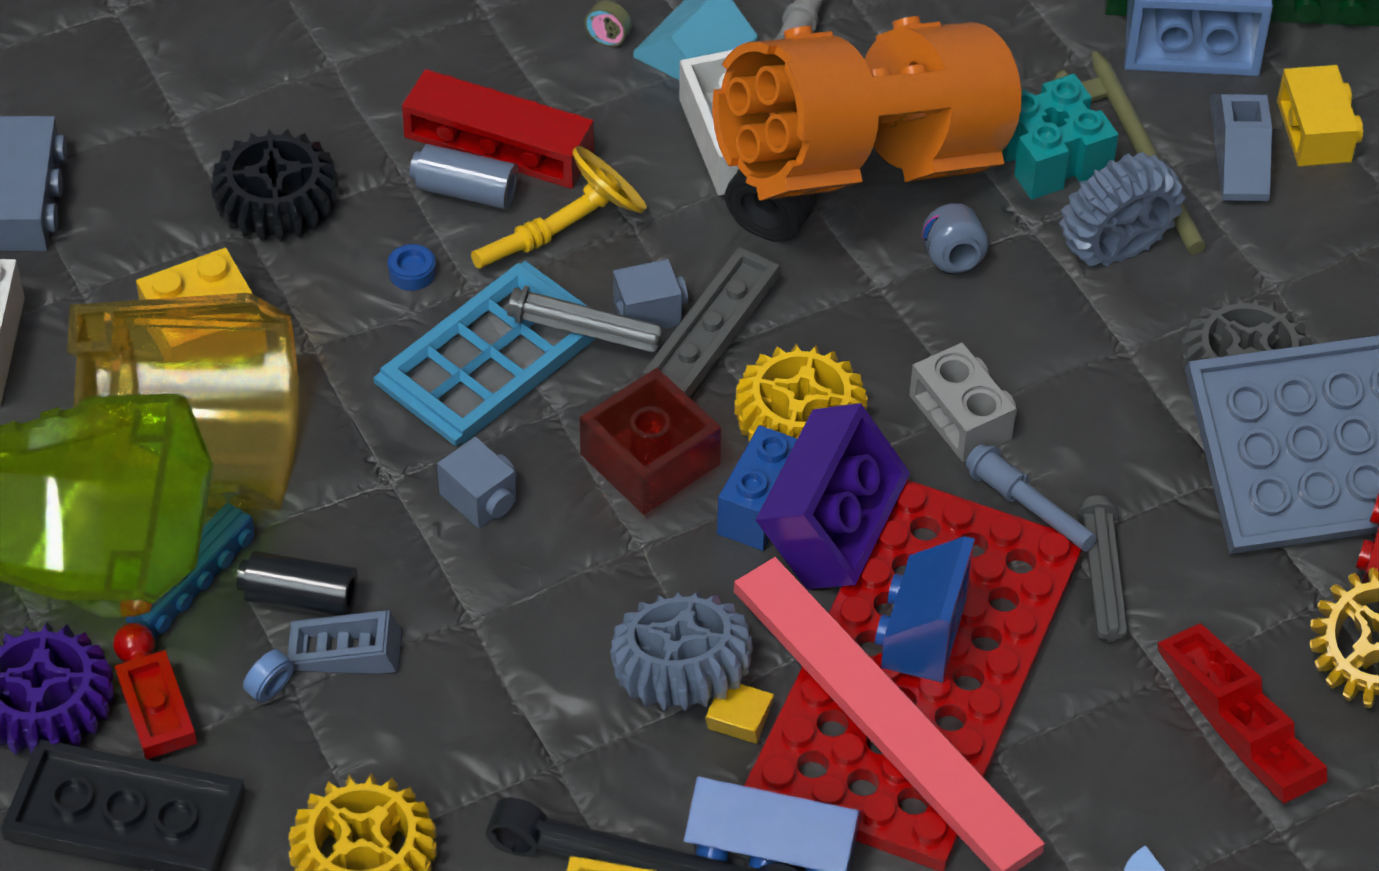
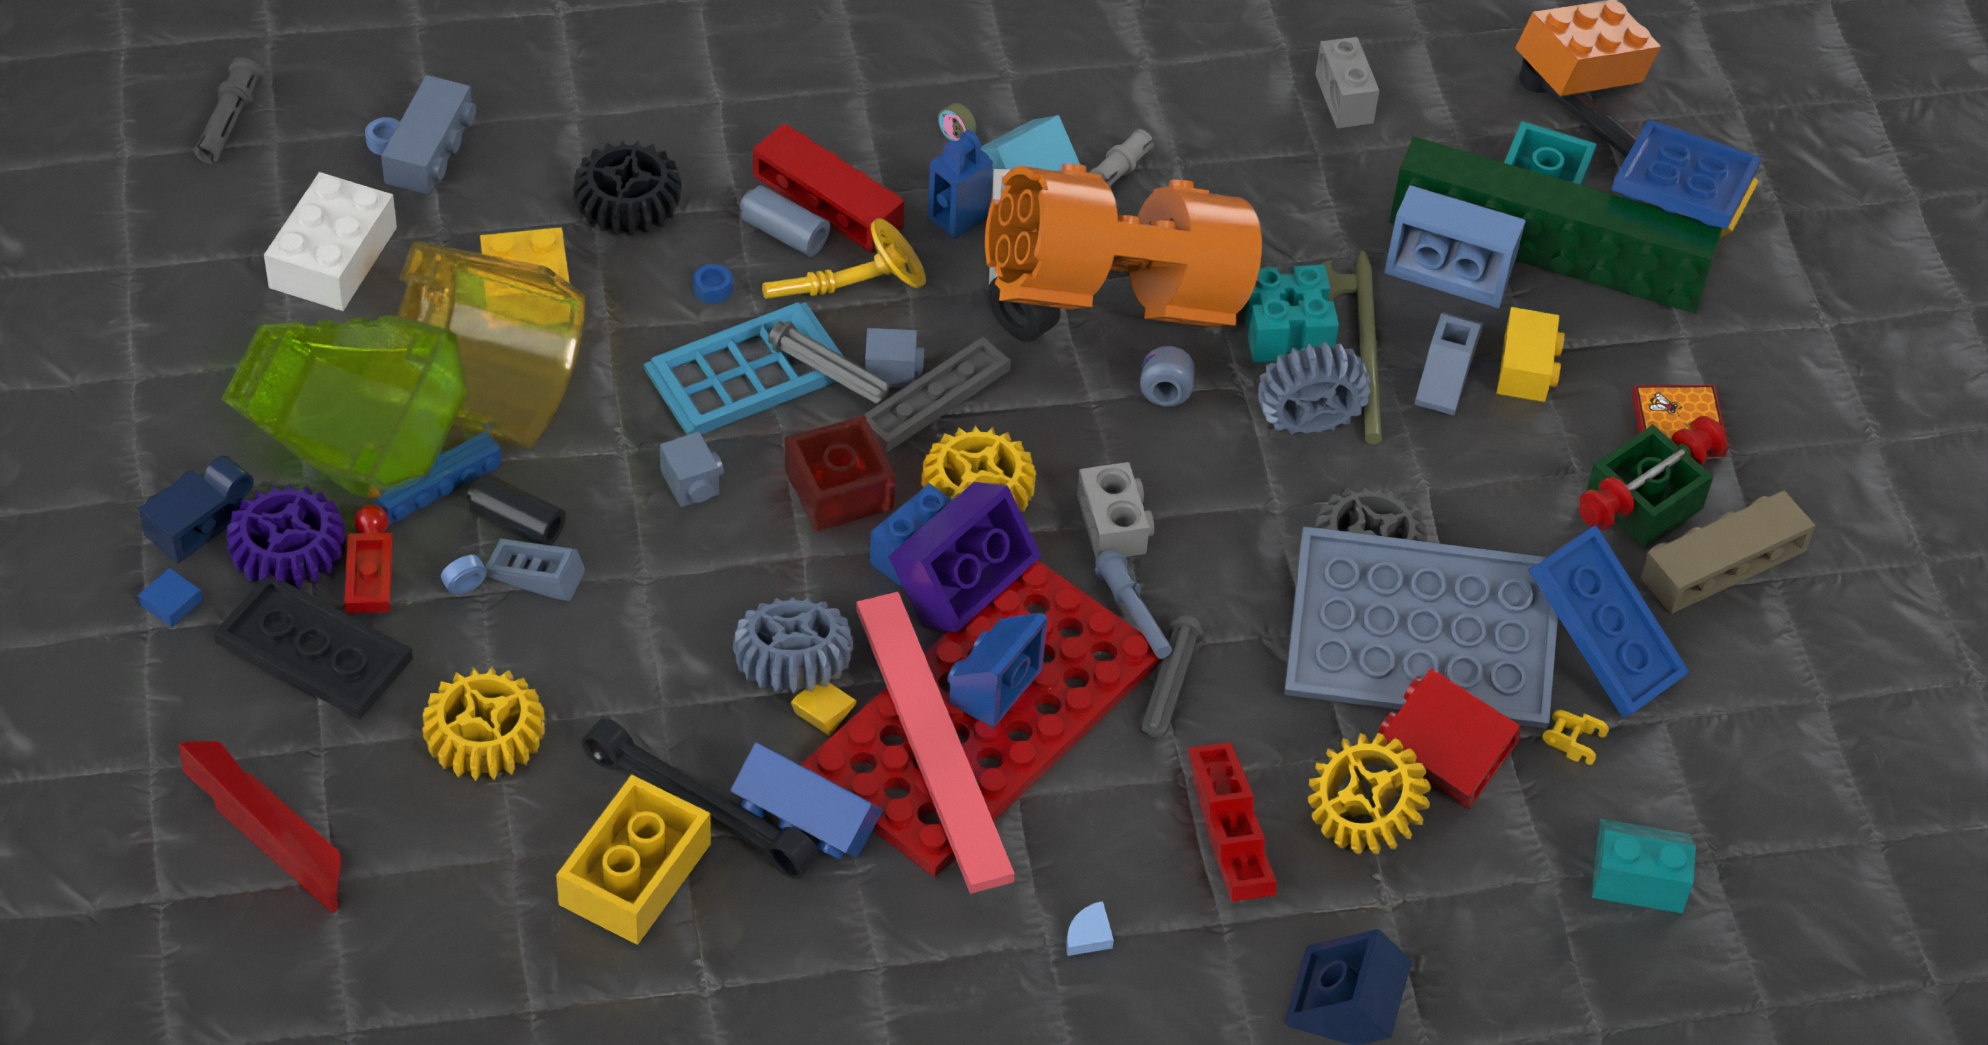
camera: 15 degrees right, 0 degrees up
(648, 88) = (960, 185): none -> blue brick

